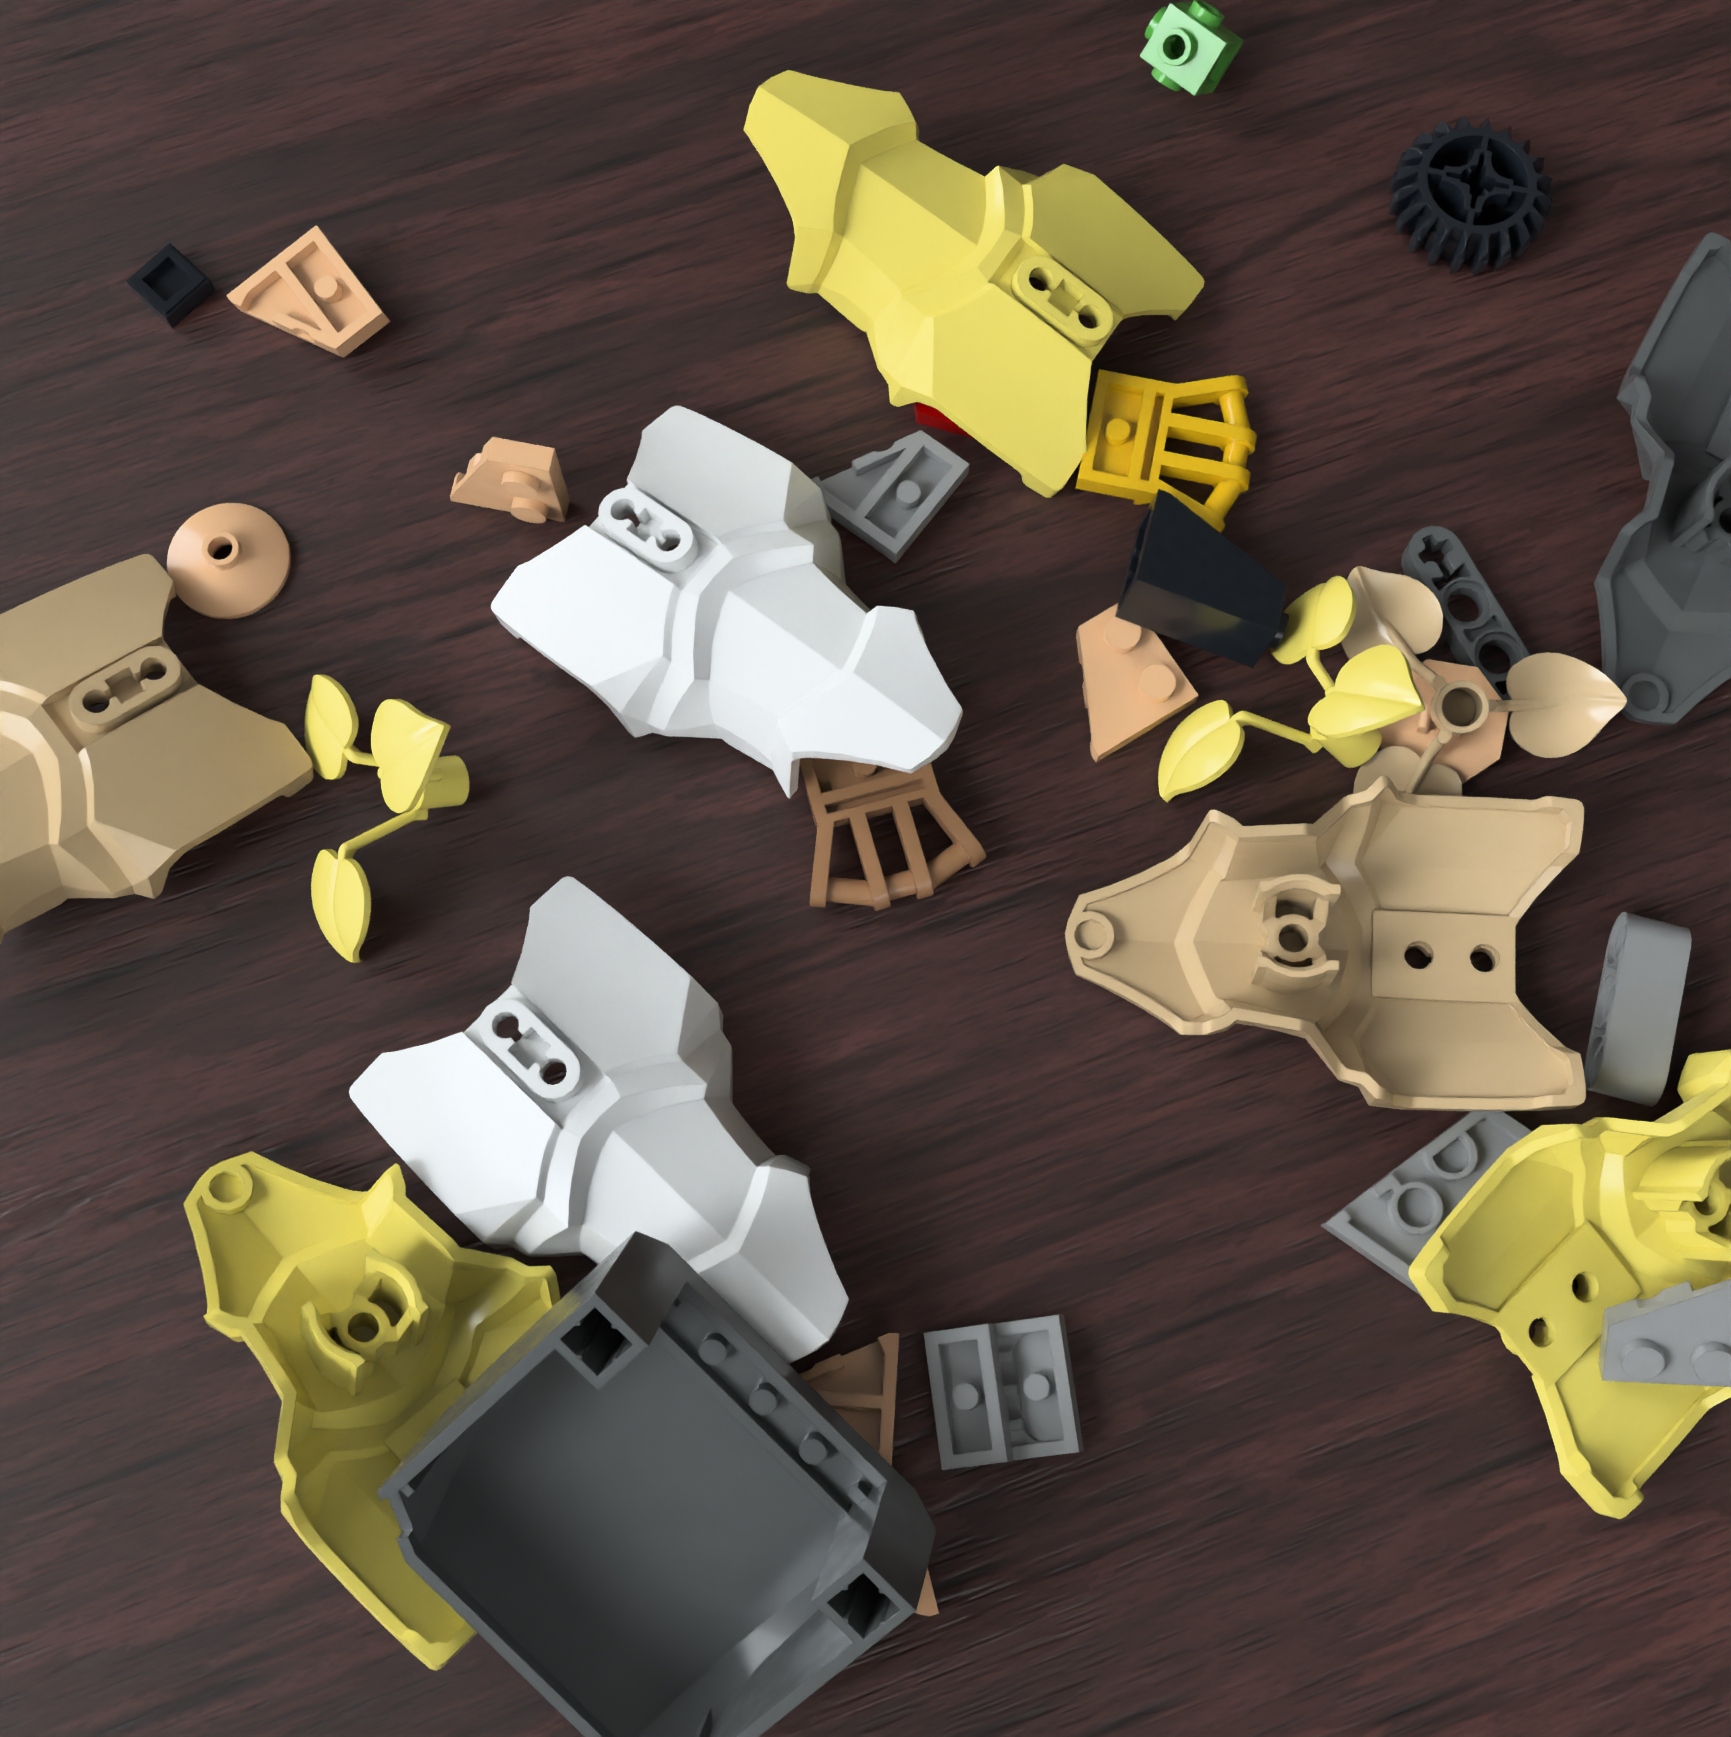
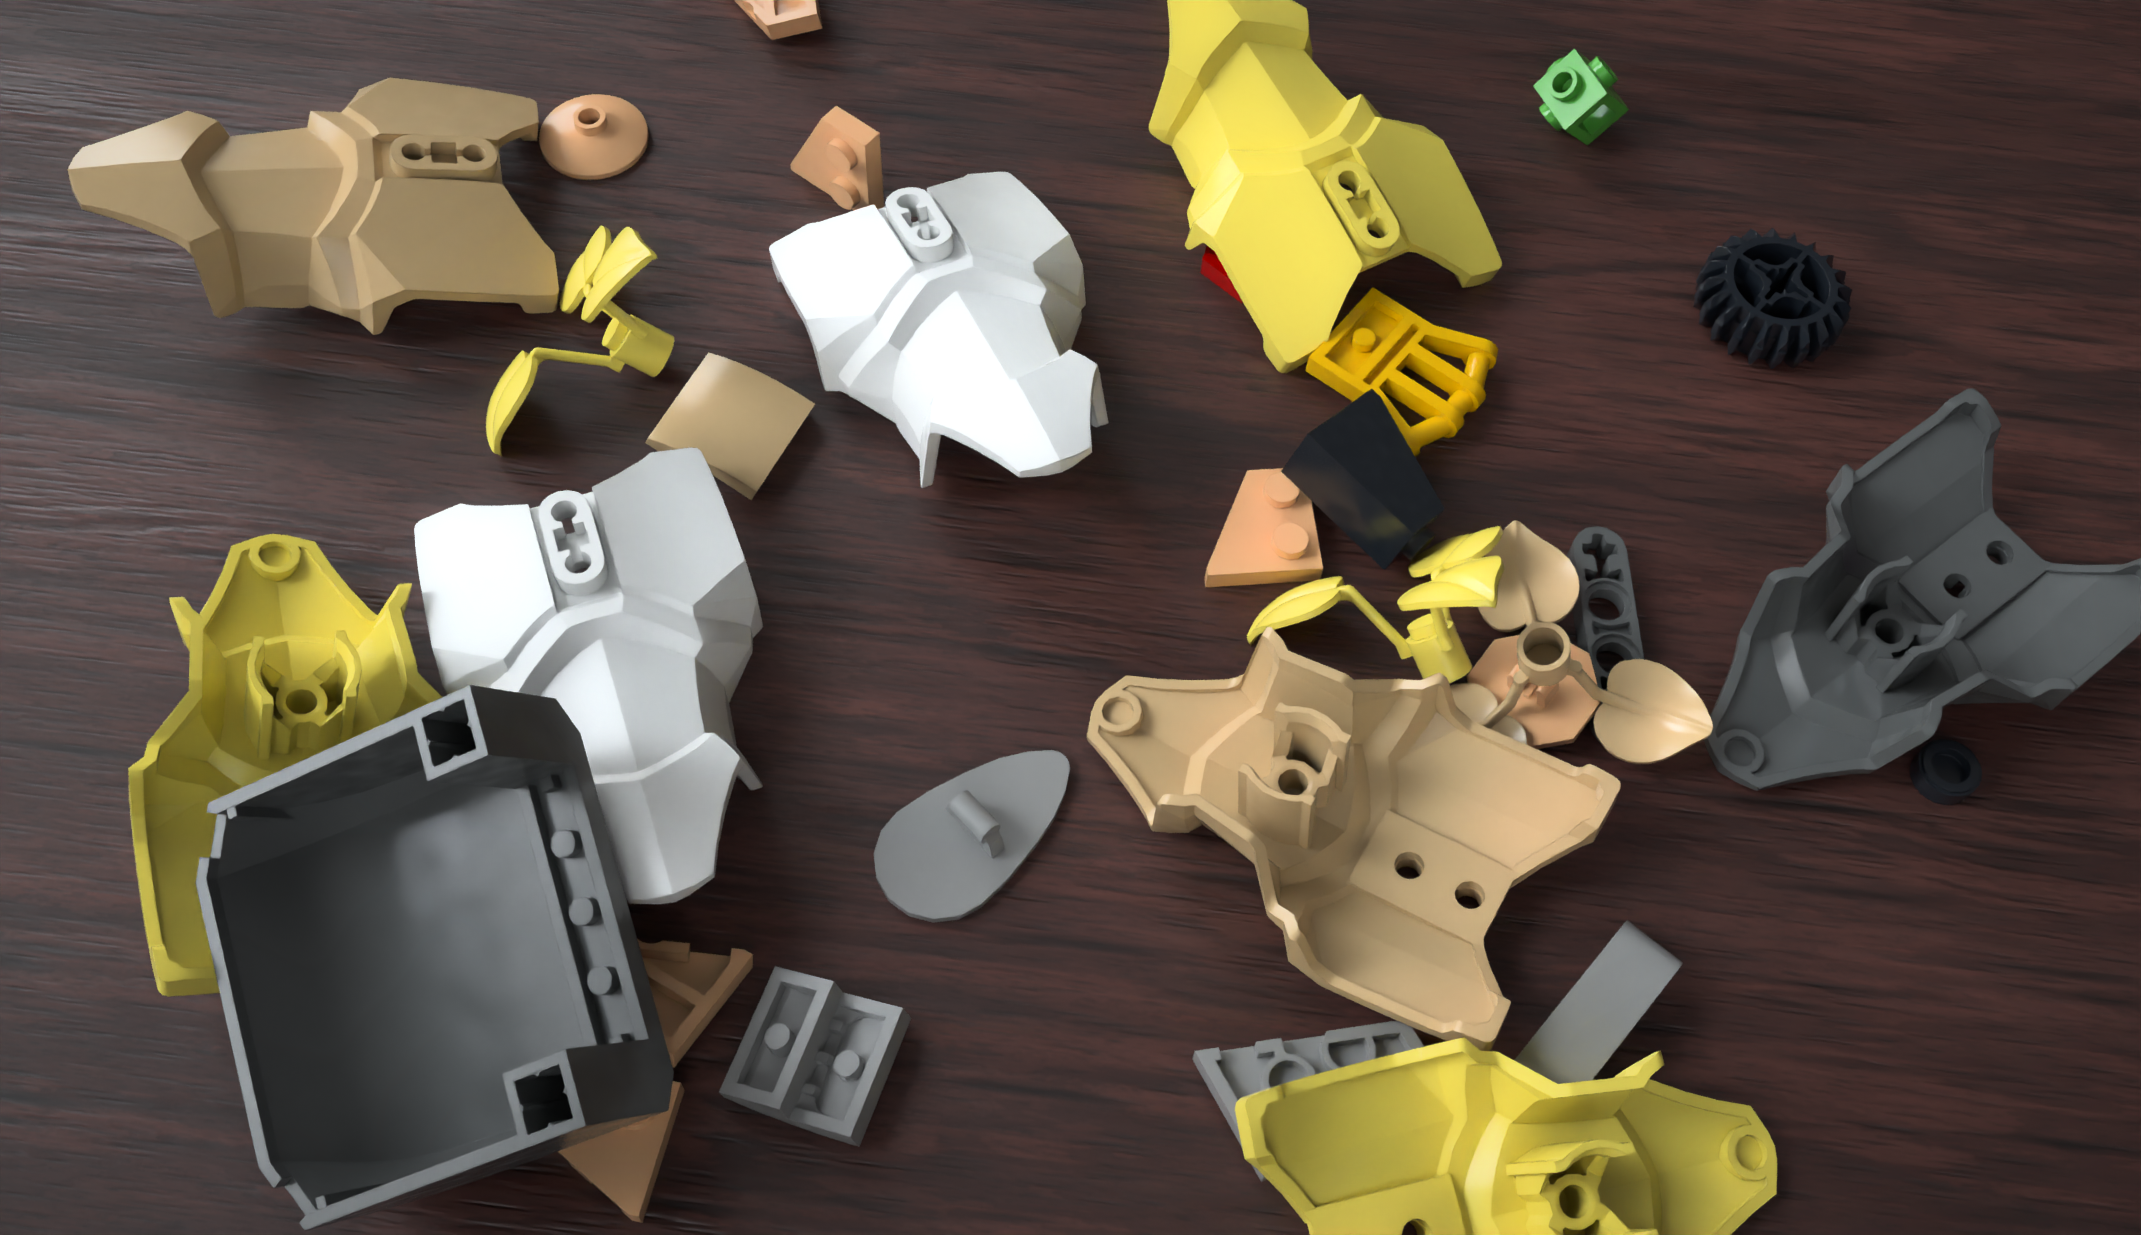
camera: 25 degrees right, 15 degrees down
(567, 819) = (734, 419): none -> tan slope
(855, 791) = (993, 503): medium nougat plate -> none
(894, 492) = (1149, 307): light grey wing -> none
(1018, 1117) = (969, 835): none -> light grey shield

